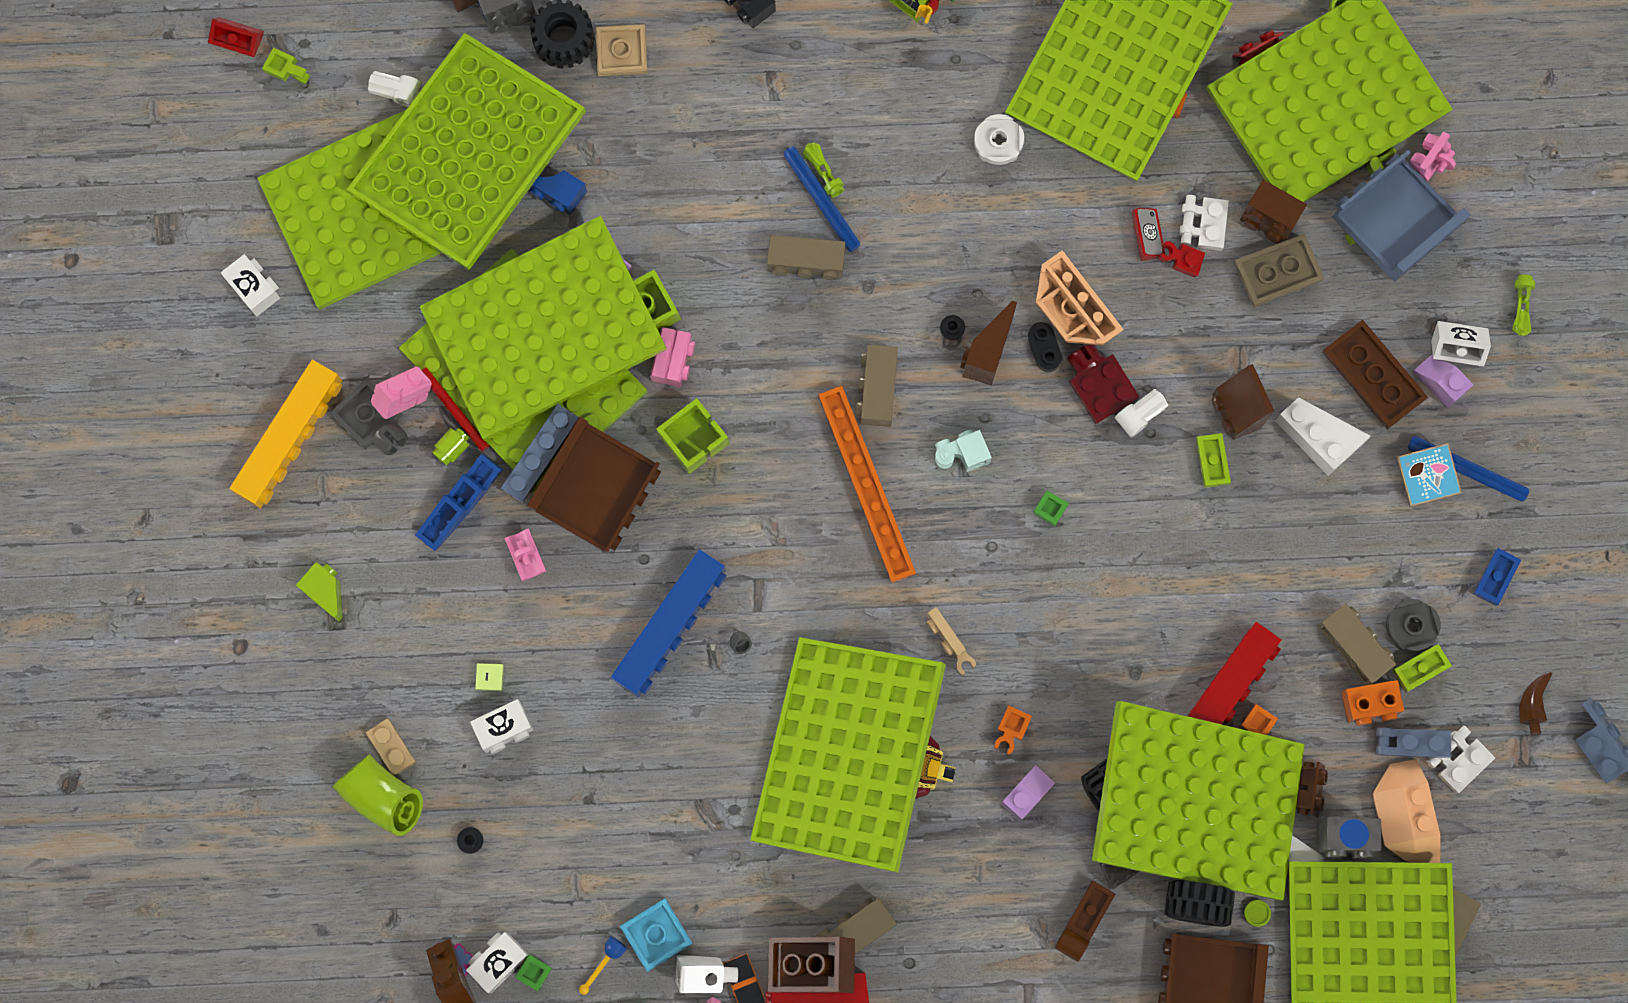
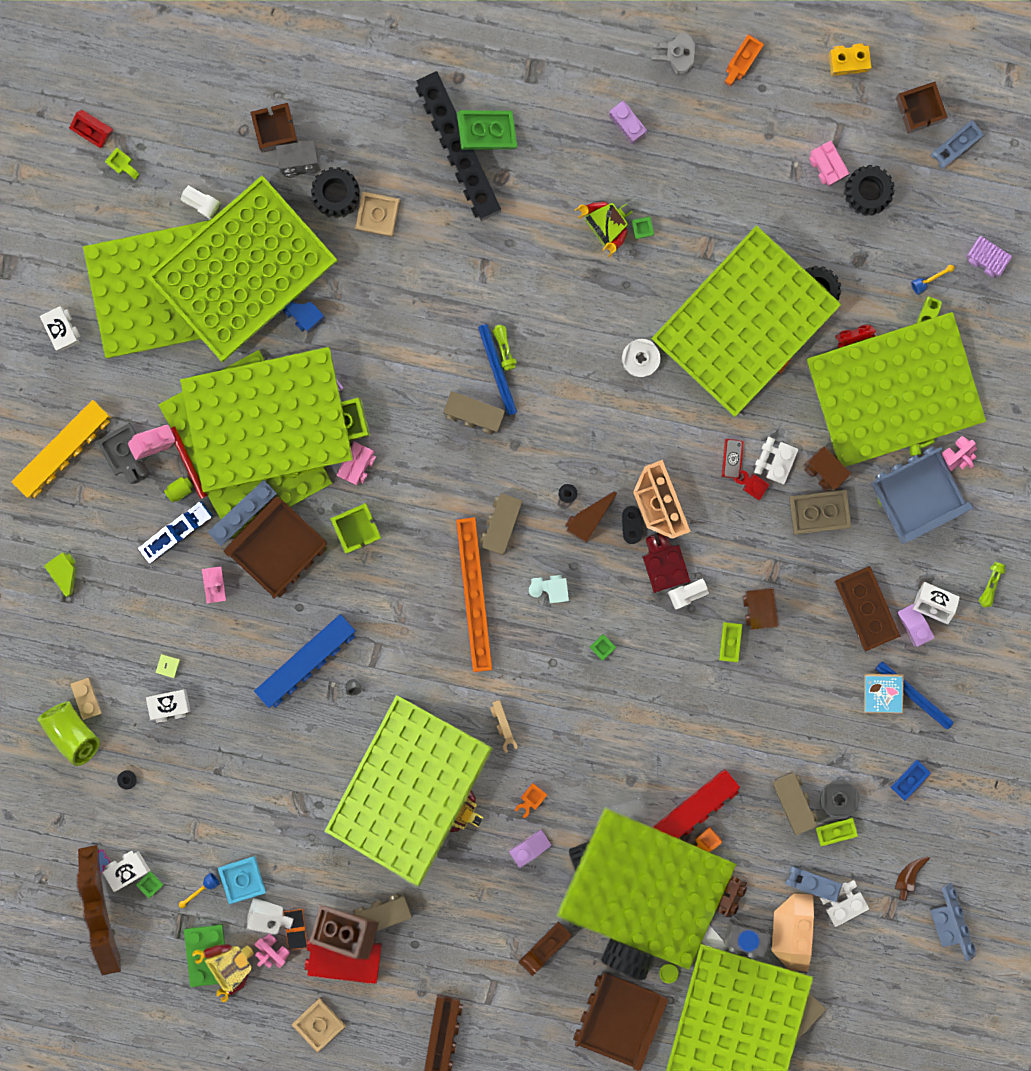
camera: 15 degrees right, 10 degrees up
(1320, 434) = (813, 644): white wedge -> none
(1372, 702) = (793, 847): orange brick -> none

